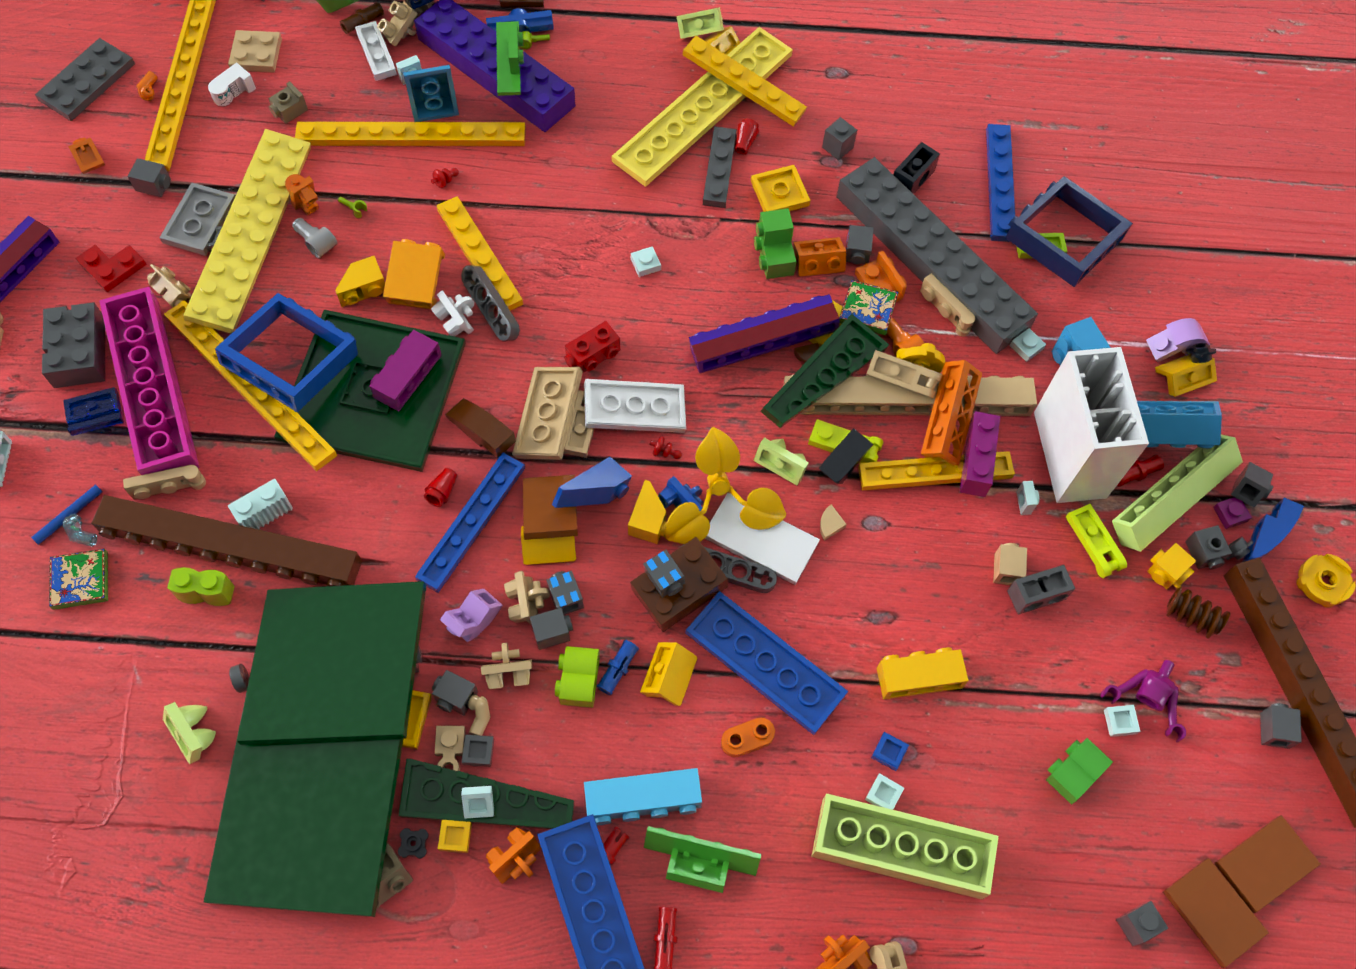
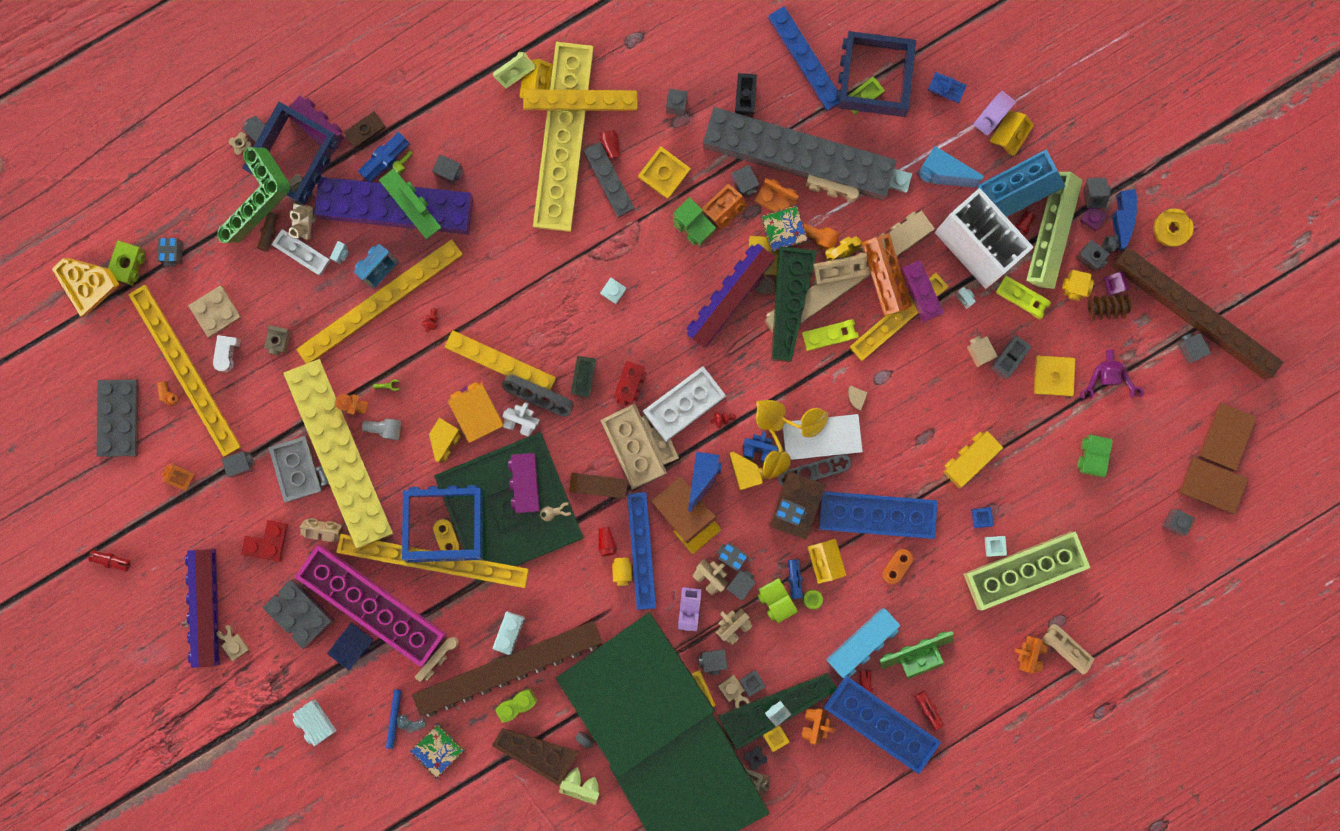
camera: 30 degrees left, 20 degrees up
(176, 660) = (538, 755): none -> reddish brown wing
(287, 372) = (446, 537): none -> yellow plate
(406, 417) = (552, 512): none -> tan arm
(432, 527) = (622, 571): none -> yellow brick
(482, 713) = (735, 658): tan arm -> none
(550, 312) = (583, 377): none -> clear green brick
(570, 65) = (448, 169): none -> dark grey brick
(621, 706) = (813, 599): none -> lime tile
(781, 461) = (794, 378): yellowish green tile -> none
(846, 456) = (839, 349): black slope -> none
(1082, 649) = (1054, 376): none -> yellow plate
(1122, 720) = (1102, 407): light aqua plate -> none
(1138, 286) = (947, 87): none -> blue hips
(1201, 353) = (1015, 115): black plate -> none
(1221, 593) = (1116, 283): none -> magenta plate

